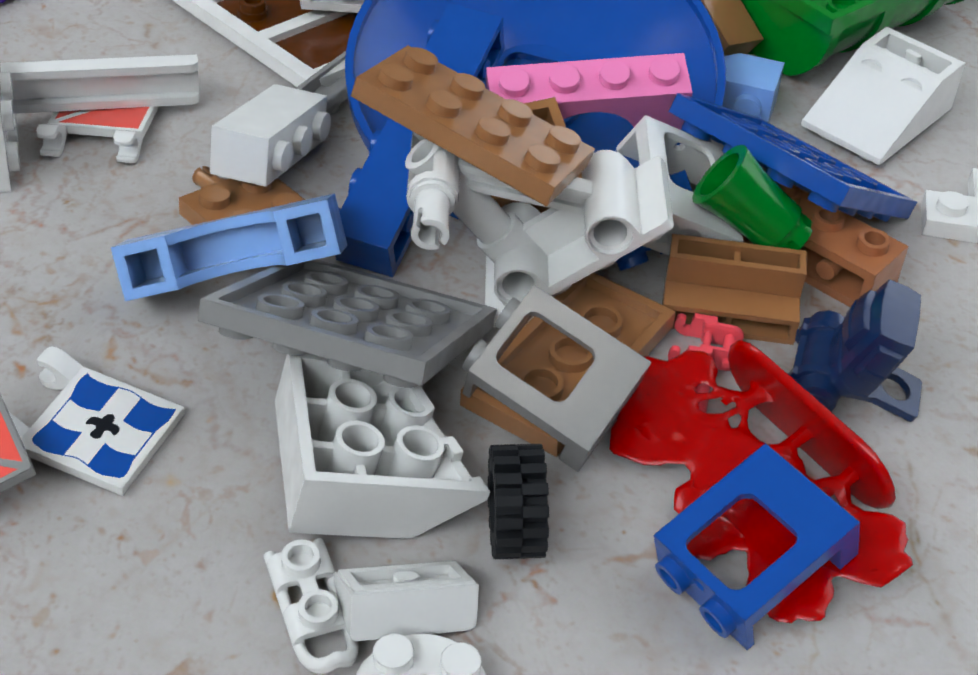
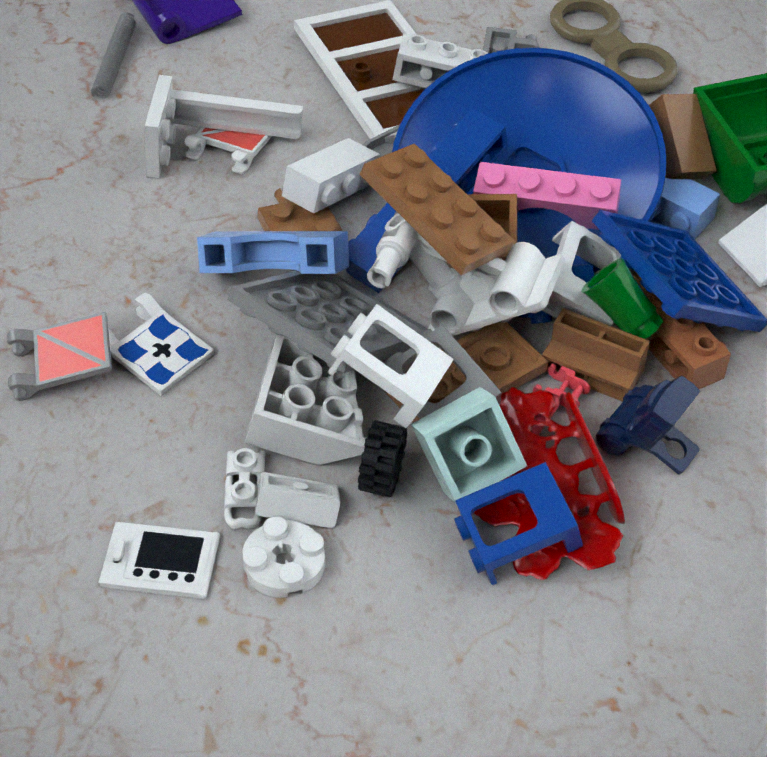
camera: 20 degrees right, 5 degrees up
(541, 381) = (411, 388): none -> white window
(641, 447) = (469, 444): none -> light aqua brick

